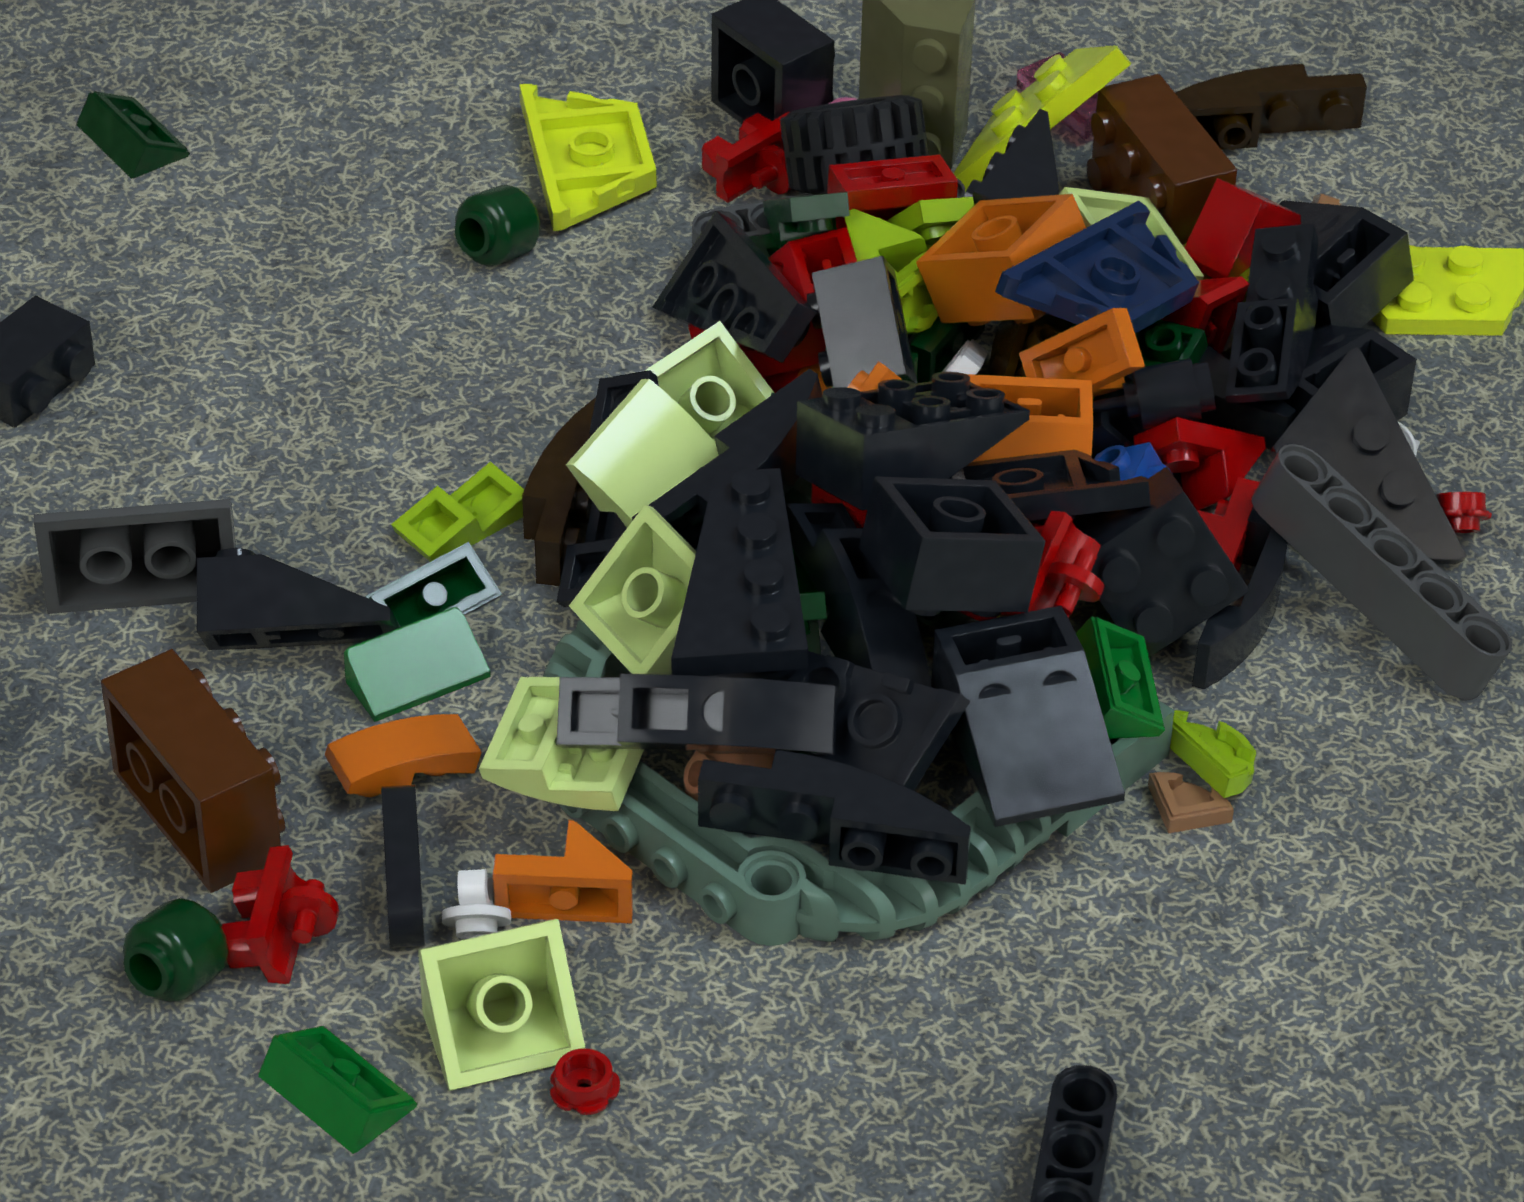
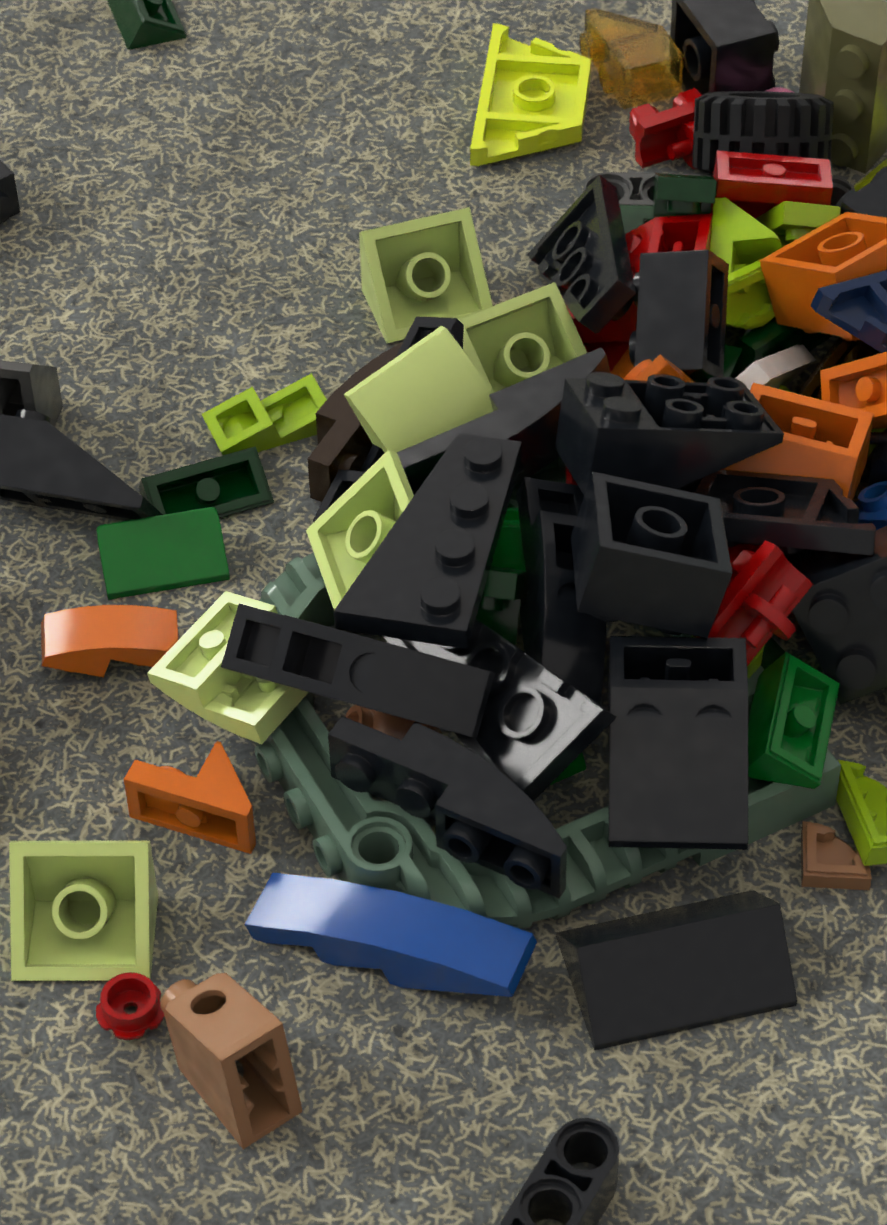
camera: 20 degrees right, 5 degrees up
(402, 866) = (60, 742): black beam -> none
(476, 910) = (107, 805): white plate -> none
(497, 225) = (416, 151): dark green head -> none
(561, 344) = (422, 271): none -> yellowish green slope
(677, 94) = (632, 57): none -> clear yellow slope
(712, 1093) = (214, 1028): none -> medium nougat torso
(826, 955) = (403, 935): none -> blue slope
(1091, 926) = (679, 968): none -> black slope

